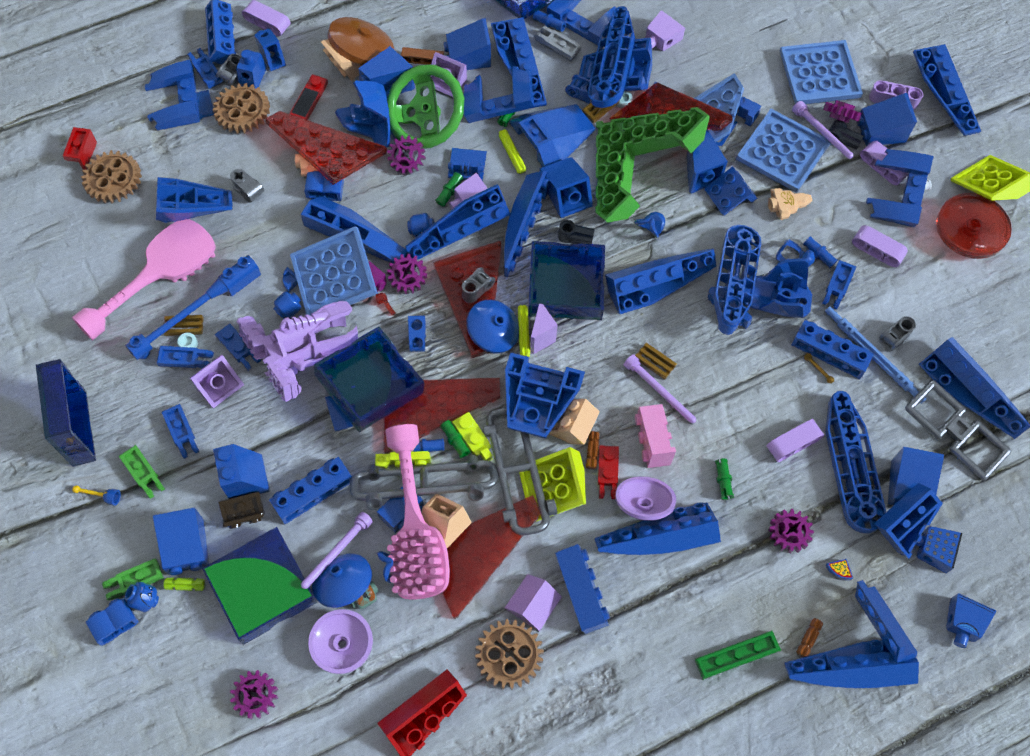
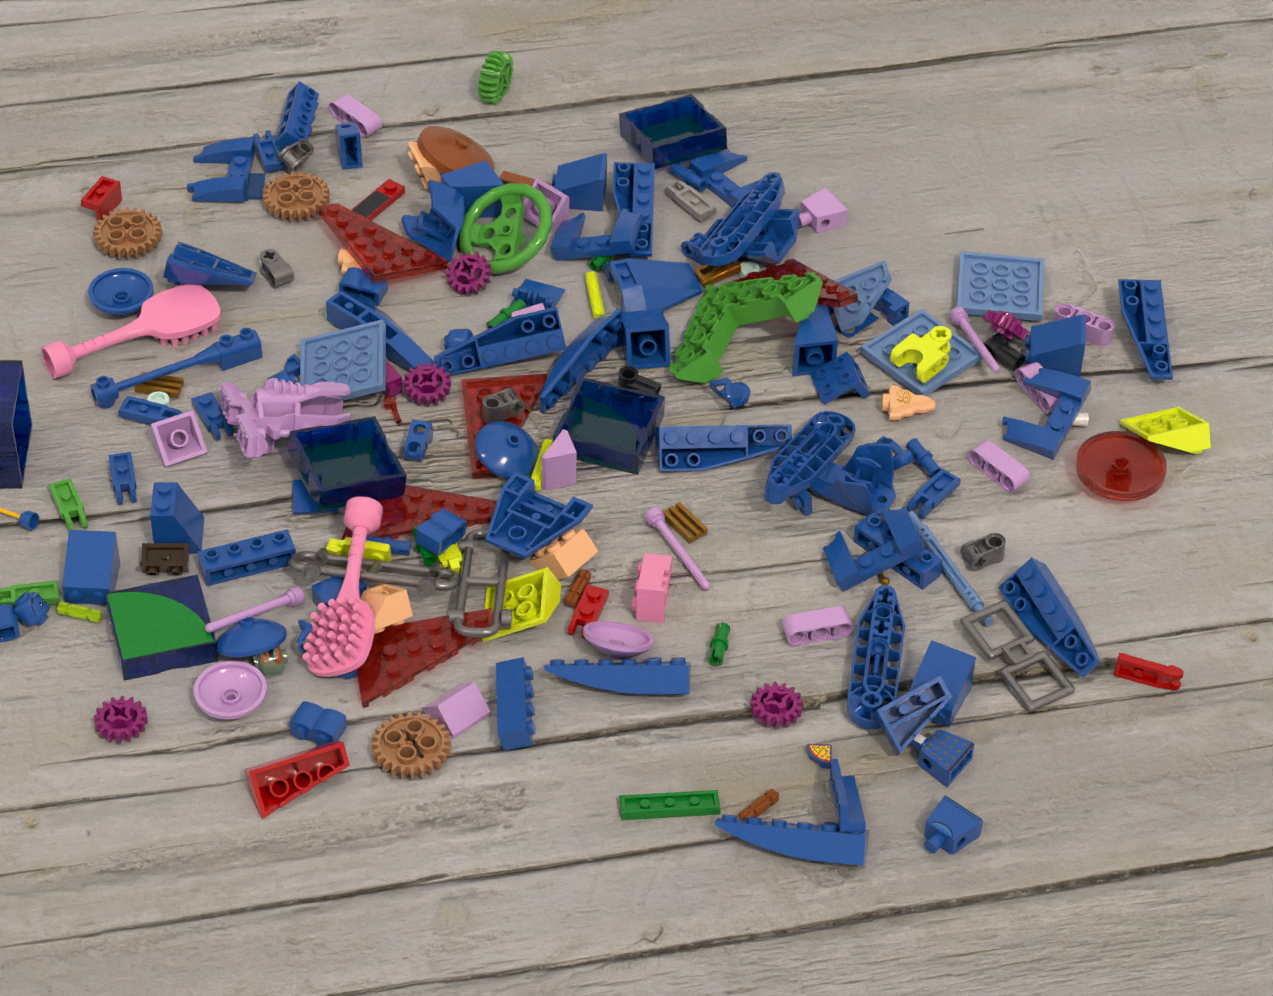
camera: 15 degrees right, 20 degrees down
(118, 234) = (120, 291): none -> blue dish
(251, 68) = (320, 157): blue torso -> none
(424, 654) = (317, 724): none -> blue brick
(467, 428) = (440, 531): none -> blue brick
(791, 152) = (928, 352): none -> neon yellow piece
(845, 351) = (852, 571): none -> blue wedge

